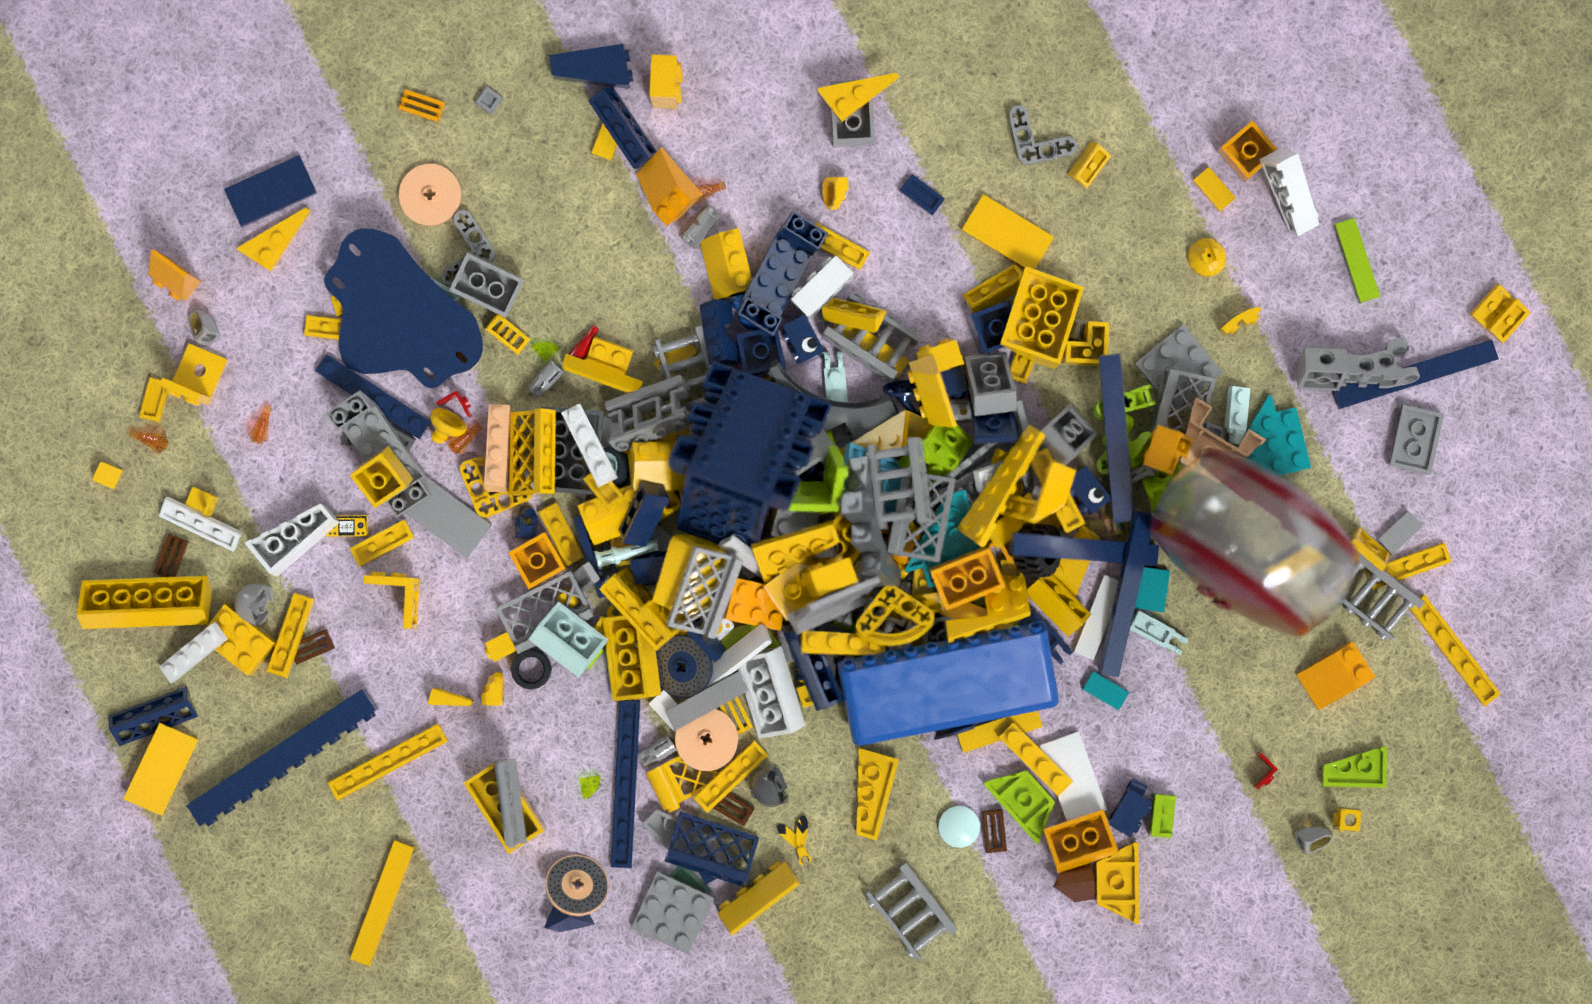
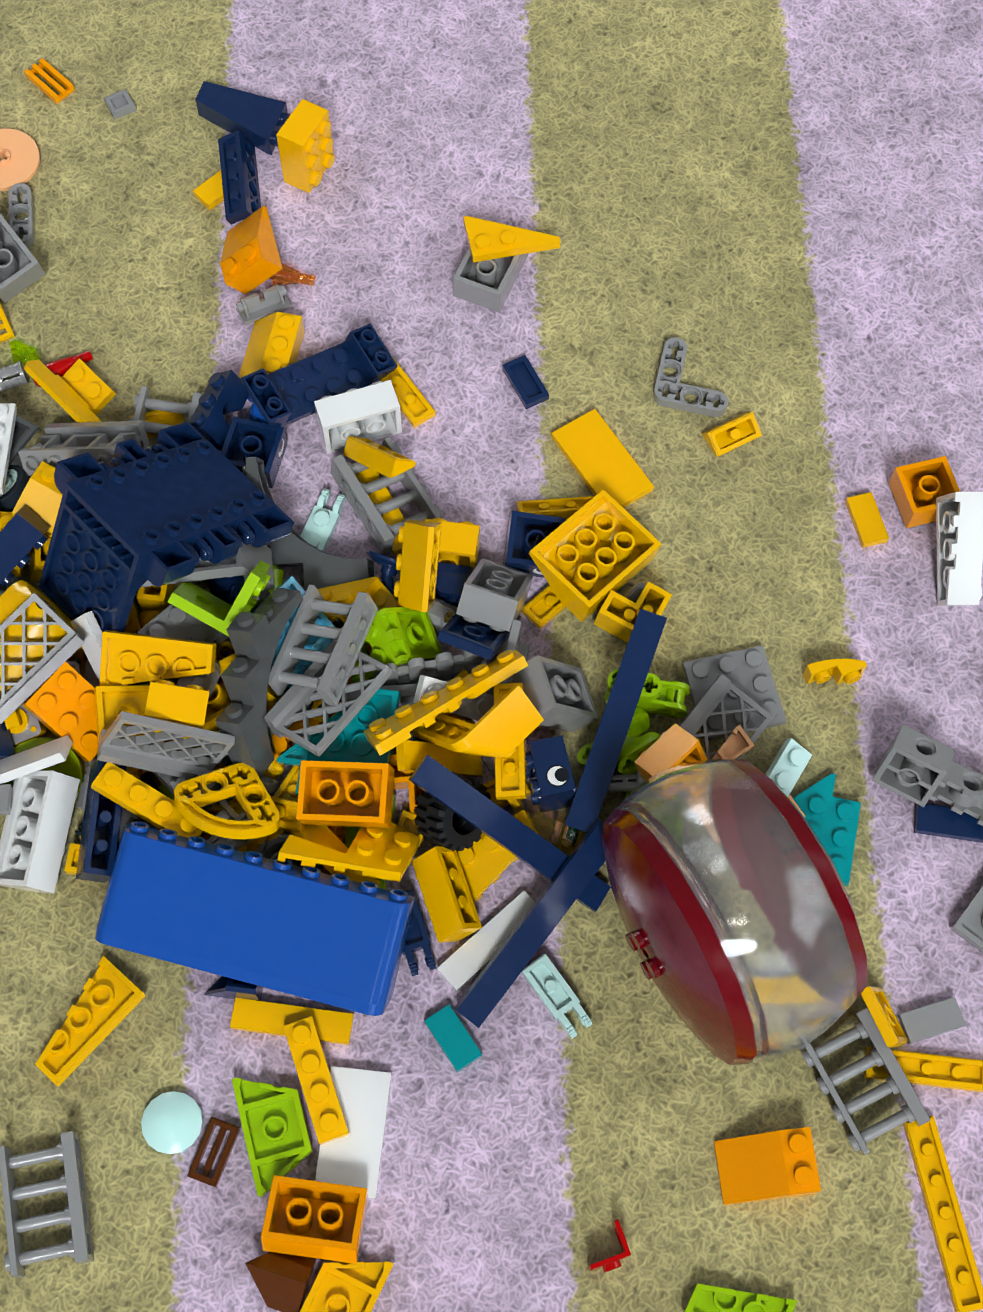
camera: 20 degrees right, 20 degrees down
(803, 340) = (304, 459): dark blue brick -> none
(834, 191) = (430, 333): yellow rock -> none
(1131, 808) = (406, 1210): dark blue hinge -> none
(1153, 590) = (574, 938): teal tile -> none
(1162, 815) = (445, 1244): lime hinge -> none
(1205, 265) = (822, 594): yellow hair -> none

